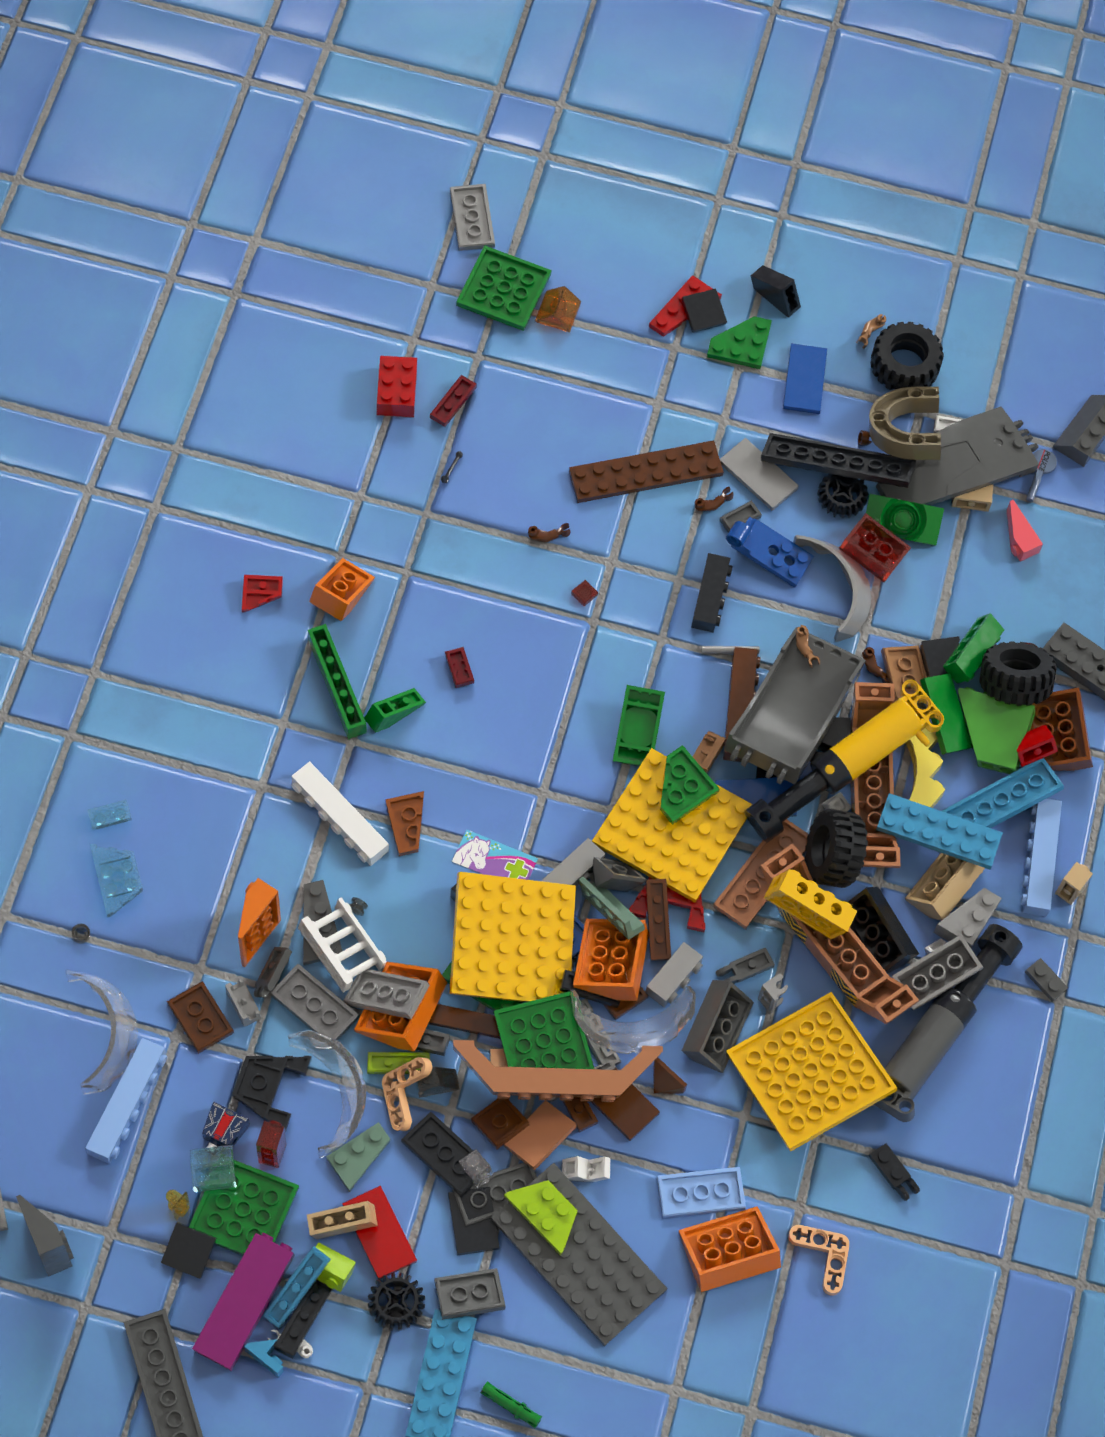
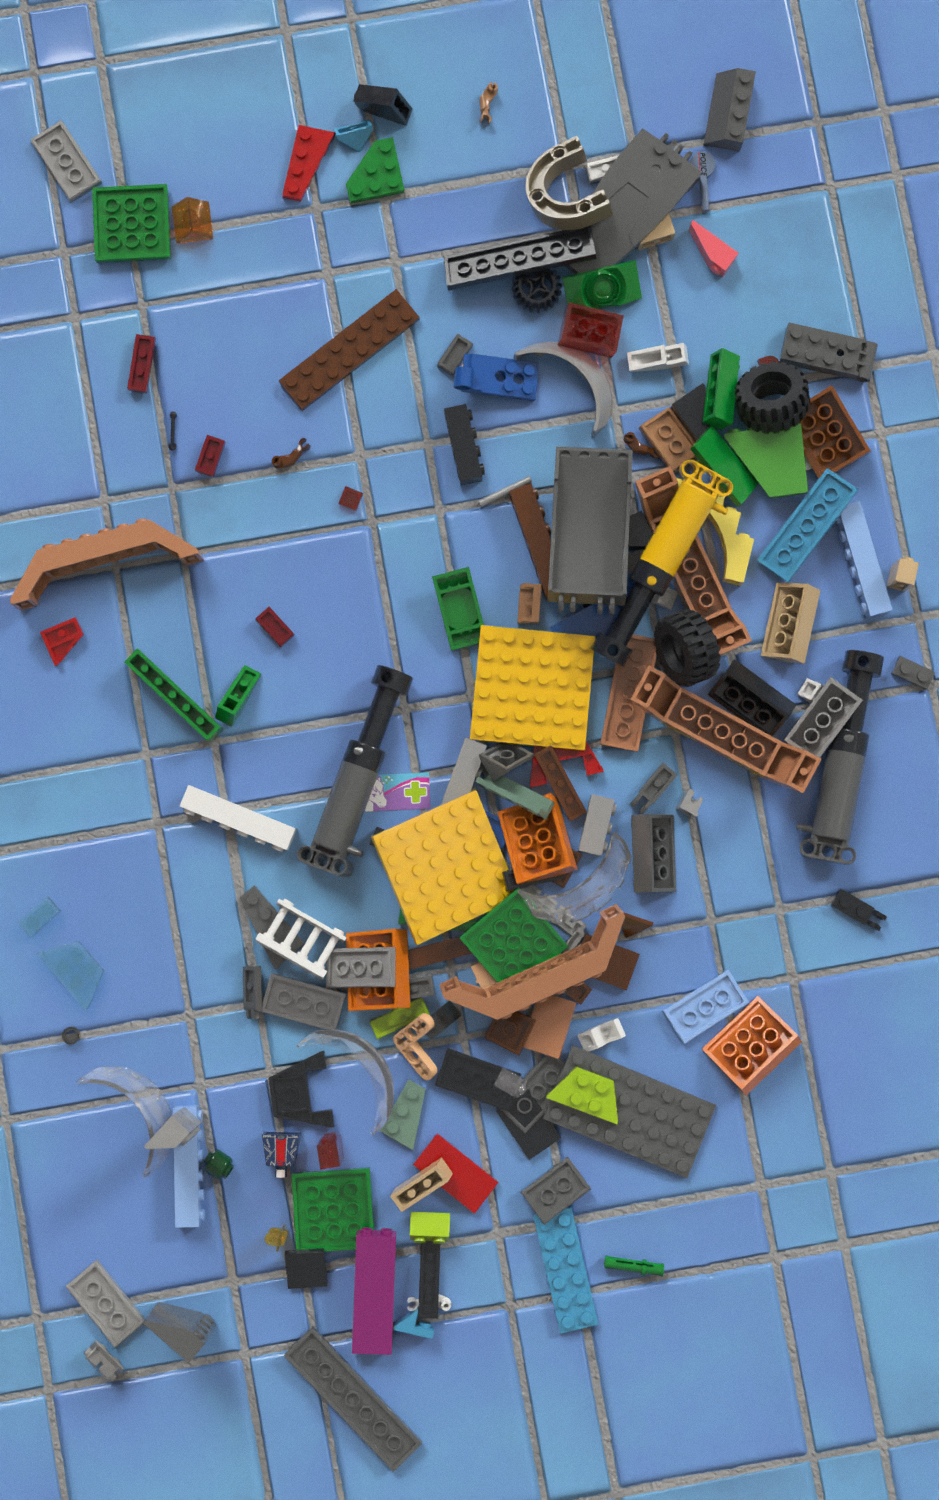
camera: 20 degrees left, 20 degrees up
(136, 1044) = (176, 1131): none -> light grey slope
(156, 1113) = (218, 1164): none -> dark green head
(200, 1017) = (211, 1059): reddish brown tile -> none
(213, 1168) = (291, 1194): clear light blue slope -> none
(243, 1002) = (242, 1030): light grey hinge -> none
(258, 918) = (216, 960): orange slope -> none
(296, 1287) = (412, 1259): dark azure tile -> none
(331, 530) = (94, 551): none -> nougat slope
(341, 589) = (133, 602): orange slope -> none
(358, 906) = (296, 895): clear smoke bush -> none
(385, 1288) = (507, 1230): black gear -> none
(397, 386) = (83, 374): red brick -> none
(405, 820) = (299, 796): dark orange wing -> none
(466, 828) = (355, 779): none -> dark grey piece
(475, 501) = (210, 456): none -> dark red plate
(684, 785) = (527, 650): green plate -> none
(704, 310) = (326, 157): black tile -> none
(712, 505) = (424, 355): reddish brown arm -> none
(738, 304) = (355, 134): none -> dark azure slope
(759, 477) = (456, 306): light grey tile -> none
(802, 644) = (569, 461): medium nougat arm -> none
(805, 378) = (450, 183): blue tile -> none
(810, 904) = (690, 716): yellow brick -> none
(811, 1071) = (753, 859): yellow plate -> none
(832, 1250) = (845, 1004): light nougat beam -> none
(863, 438) = (530, 220): reddish brown hinge -> none
(910, 338) = (539, 95): black tyre -> none
(928, 600) = (658, 358): none -> white slope
(939, 831) = (768, 586): dark azure plate -> none
(969, 917) = (827, 651): light grey wedge -> none
(1036, 745) = (818, 460): red slope -> none

